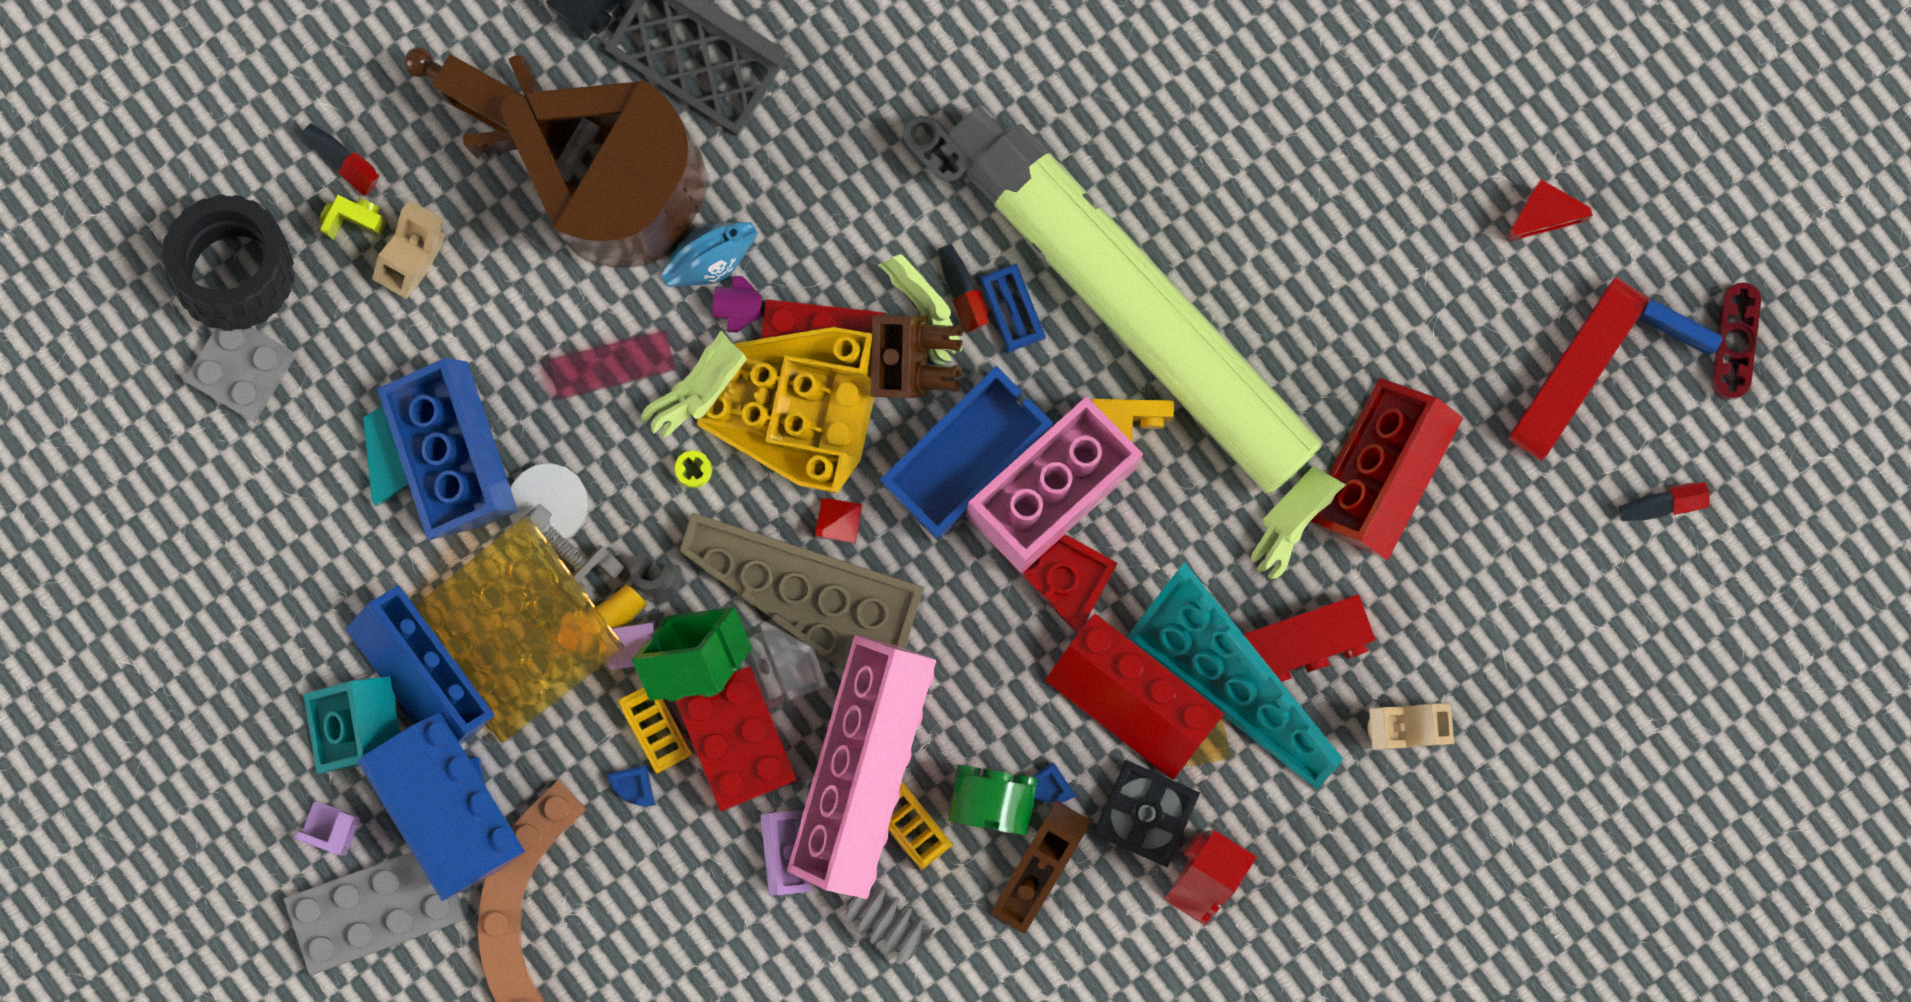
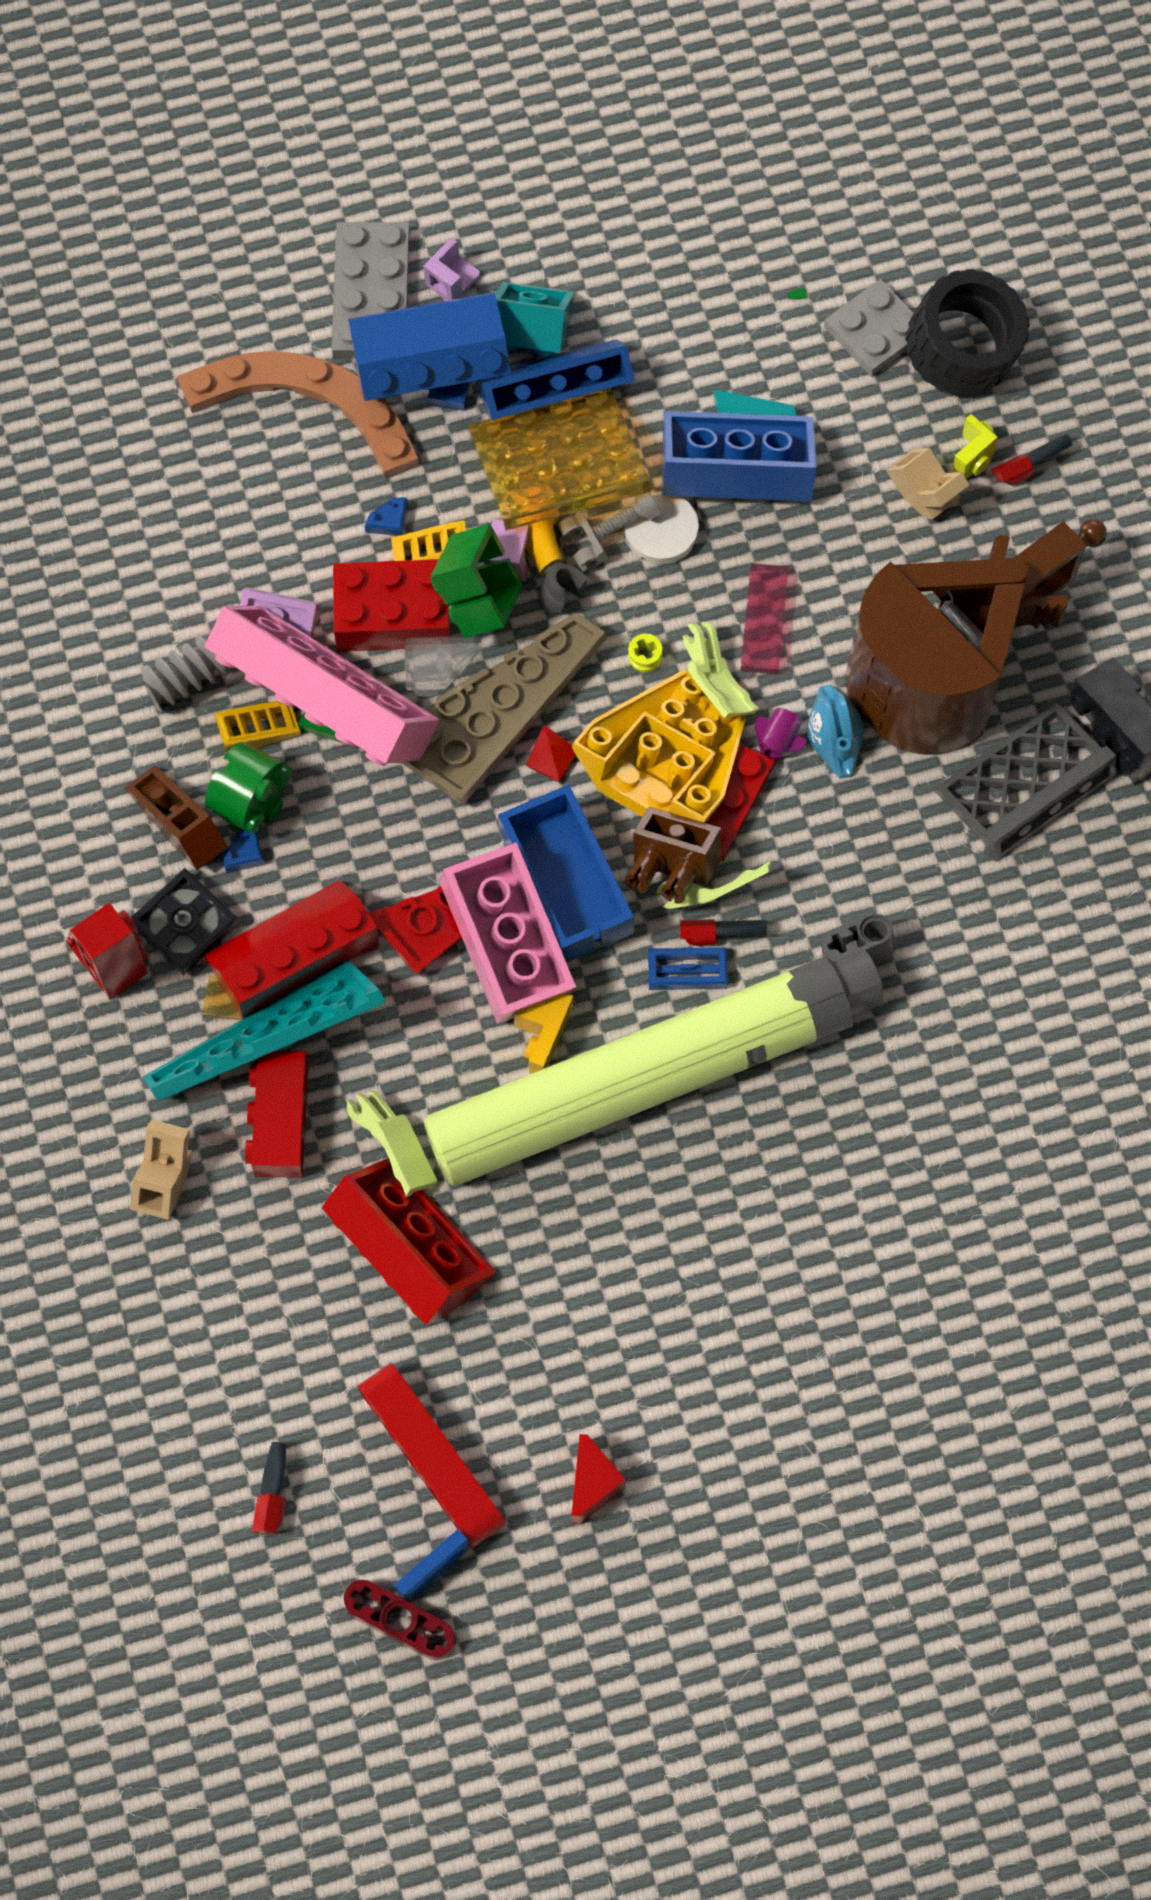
camera: 110 degrees right, 15 degrees down
(225, 462) = (797, 294): none -> green piece

